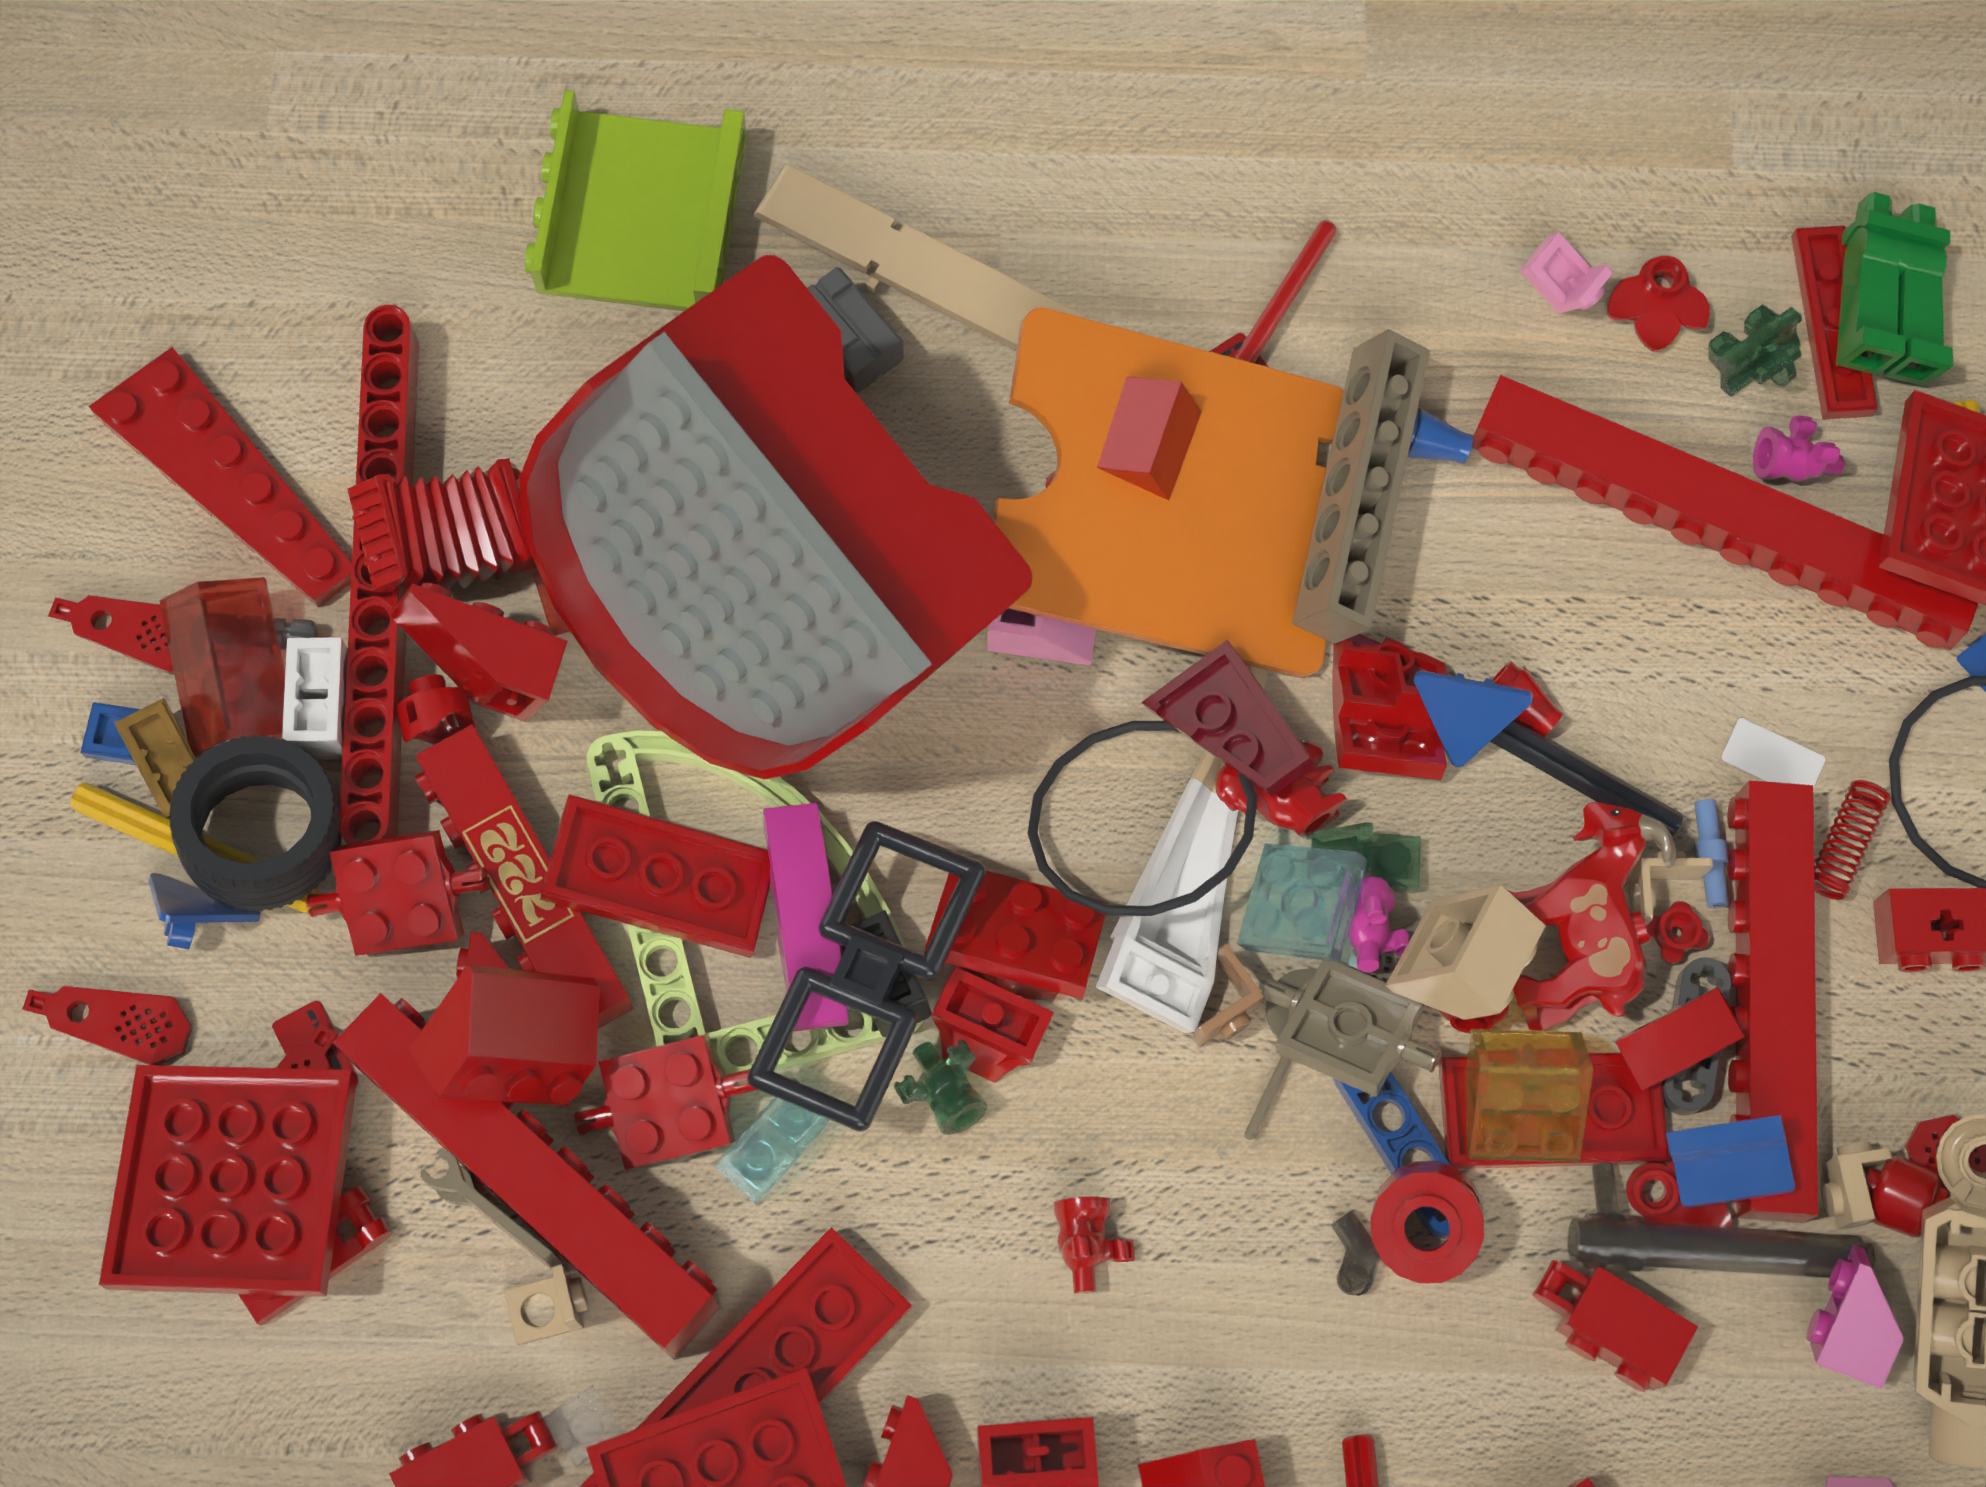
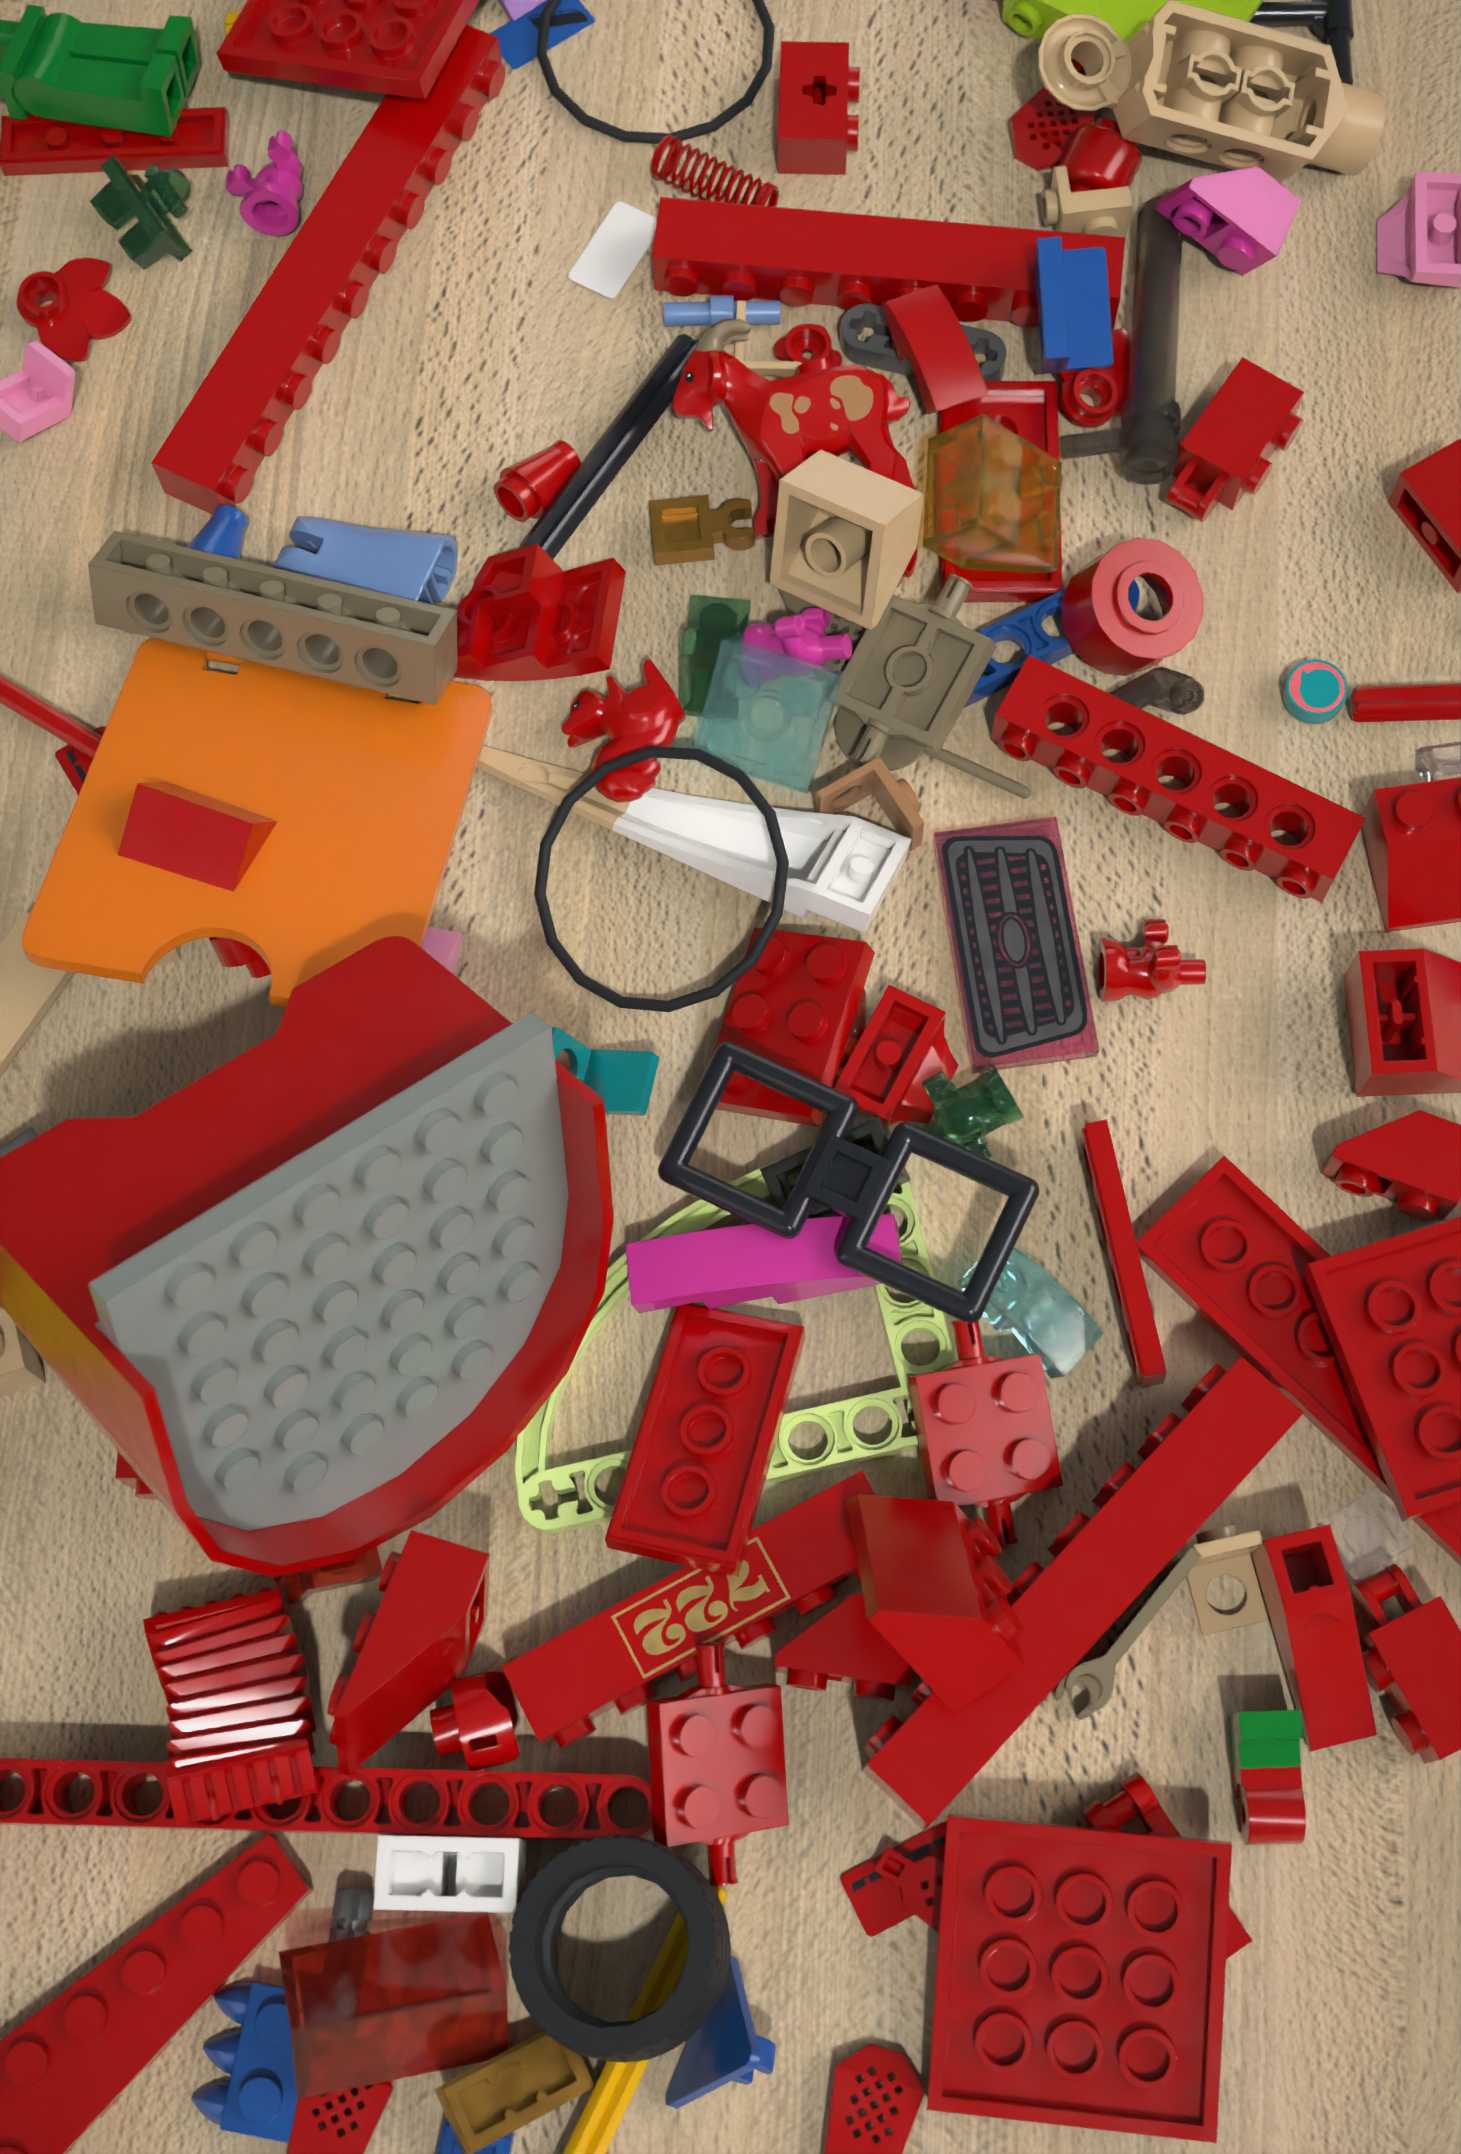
camera: 80 degrees left, 0 degrees up
(167, 570) = (262, 2085): none -> blue plate
(386, 1337) = (1268, 1776): none -> leg
(496, 1377) = (1316, 1635): none -> red slope
(818, 1217) = (1122, 1254): none -> red tile
(966, 780) = (617, 1076): none -> teal bracket
(1106, 1127) = (1015, 945): none -> tile
(1232, 719) = (553, 766): dark red wing -> none
(1338, 1143) = (1161, 749): none -> red brick
(1368, 1401) = (1315, 691): none -> teal tile
(1424, 565) = (375, 559): none -> medium blue piece
(1468, 711) = (556, 521): blue piece -> none
(1486, 831) = (688, 529): none -> pearl gold plate

